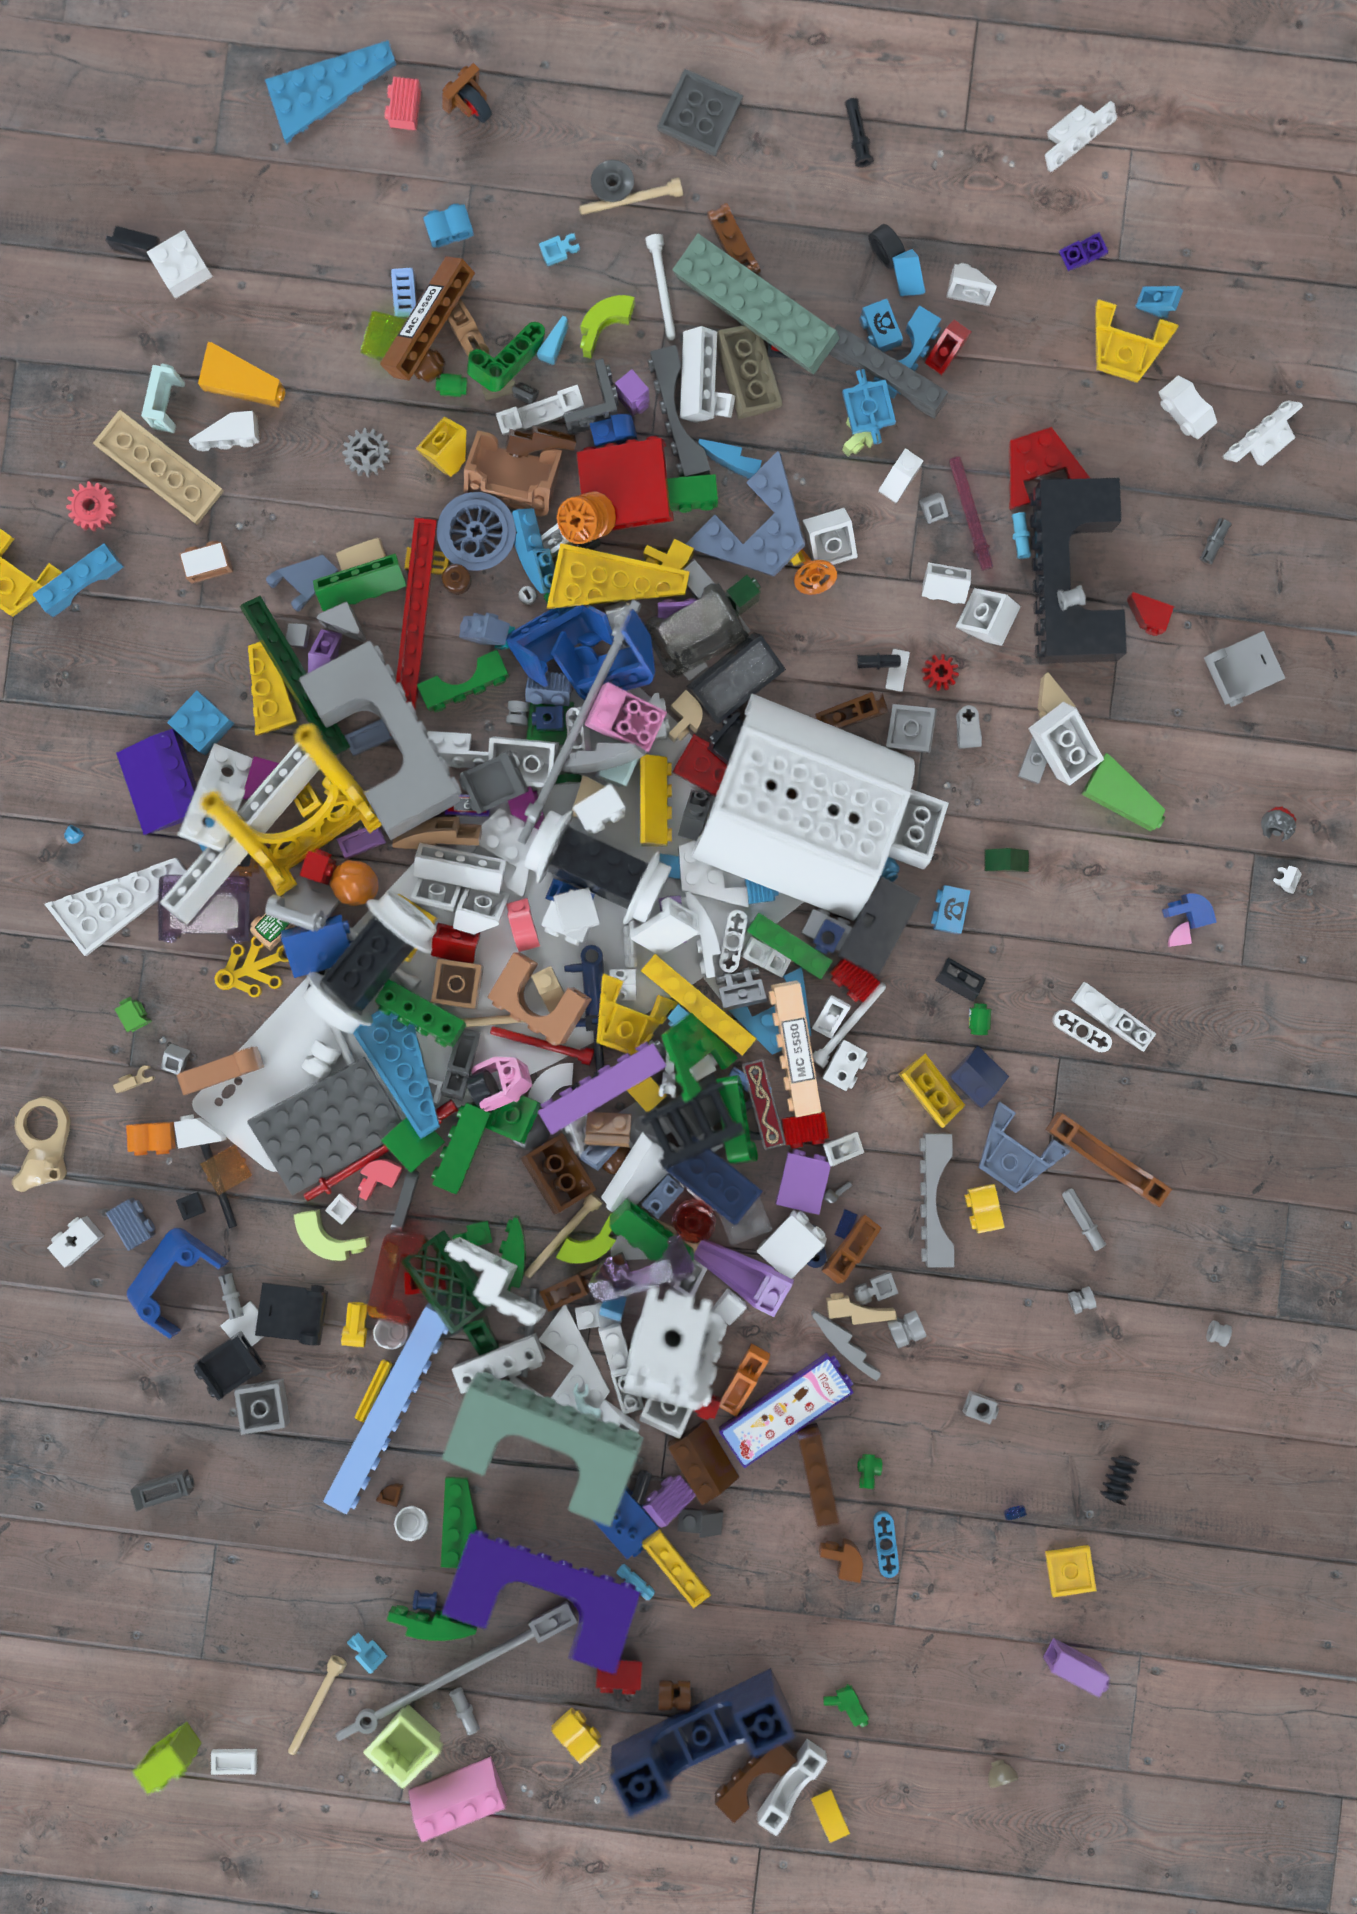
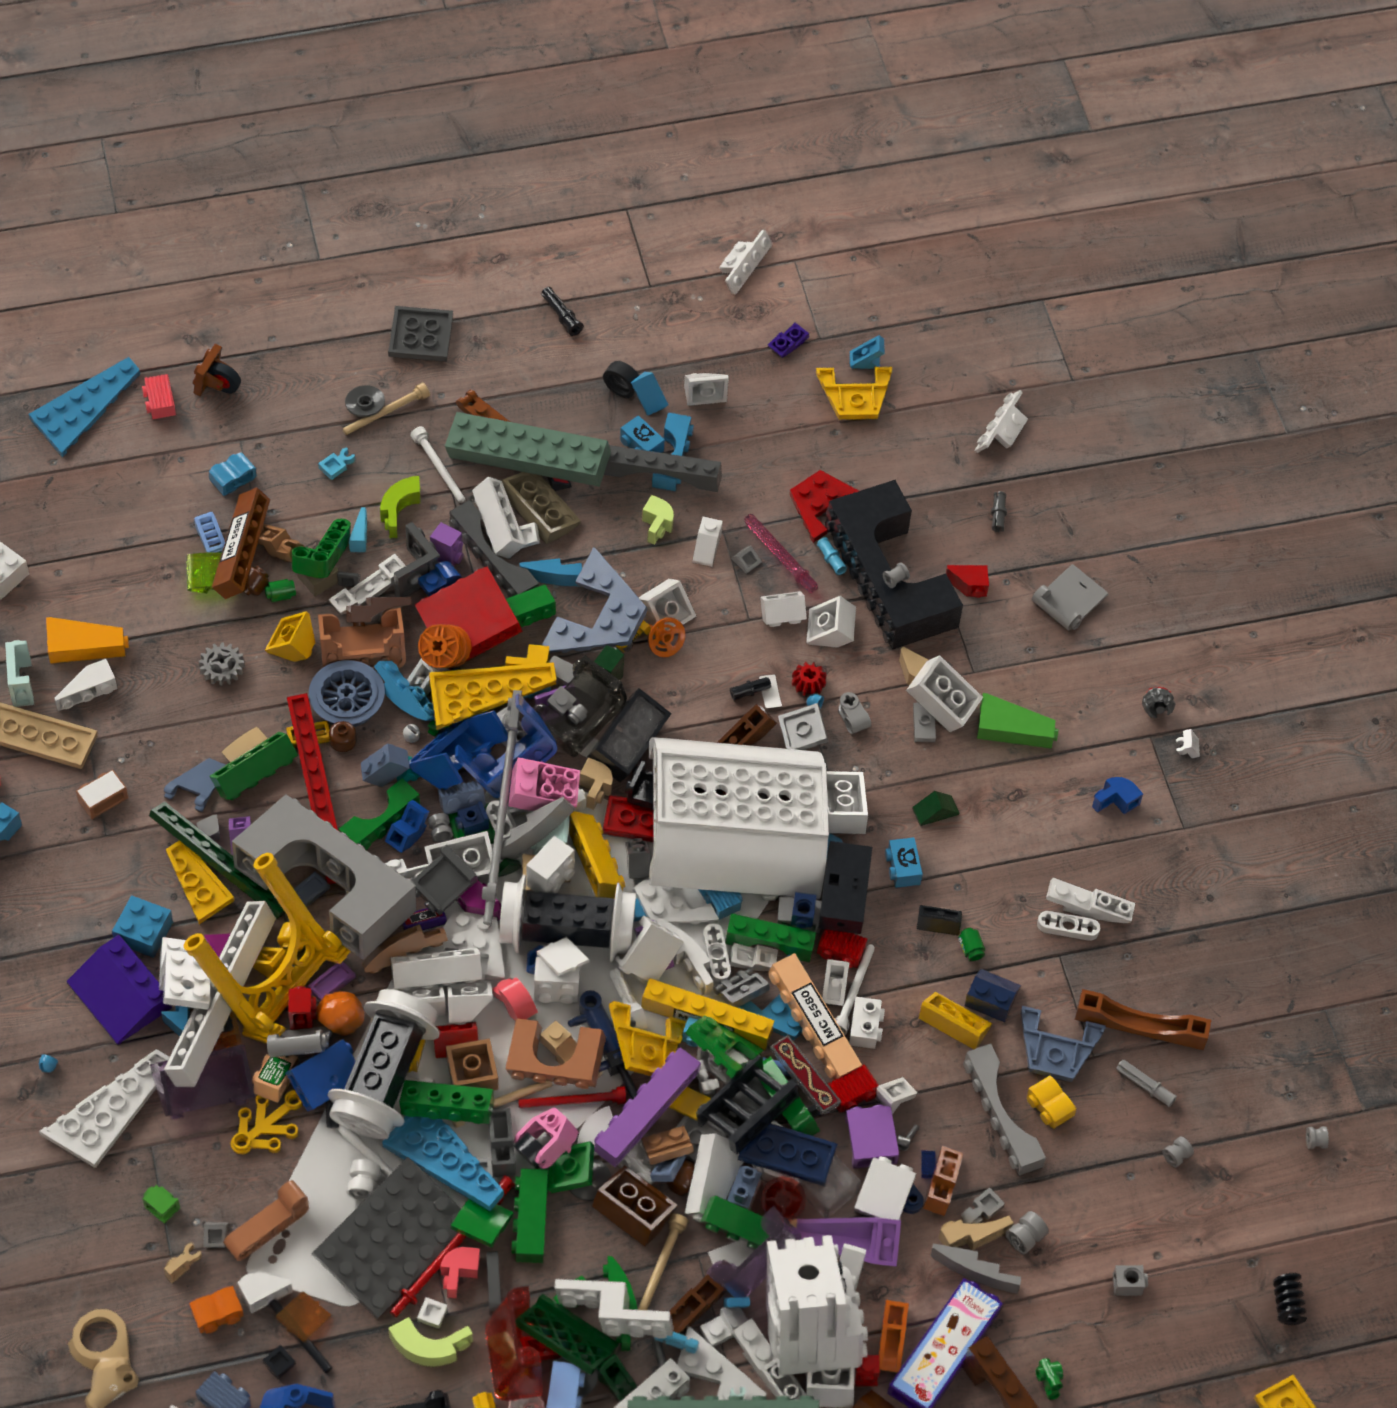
camera: 25 degrees left, 30 degrees down
(342, 620) = (249, 799): light grey slope -> none
(484, 705) = (409, 829): none -> blue brick
(550, 1318) = (681, 1342): none -> medium azure axle
(589, 1250) = (691, 1267): lime arch -> none
(682, 620) = (563, 701): none -> light grey plate
(869, 406) = (658, 494): dark azure plate -> none
(936, 699) = (815, 698): none -> dark azure hinge
(947, 347) = (705, 437): red slope -> none
(1015, 1512) = (1207, 1366): clear blue tile -> none
(1180, 935) = (1118, 821): bright pink tile -> none
(1187, 407) = (928, 422): white brick -> none

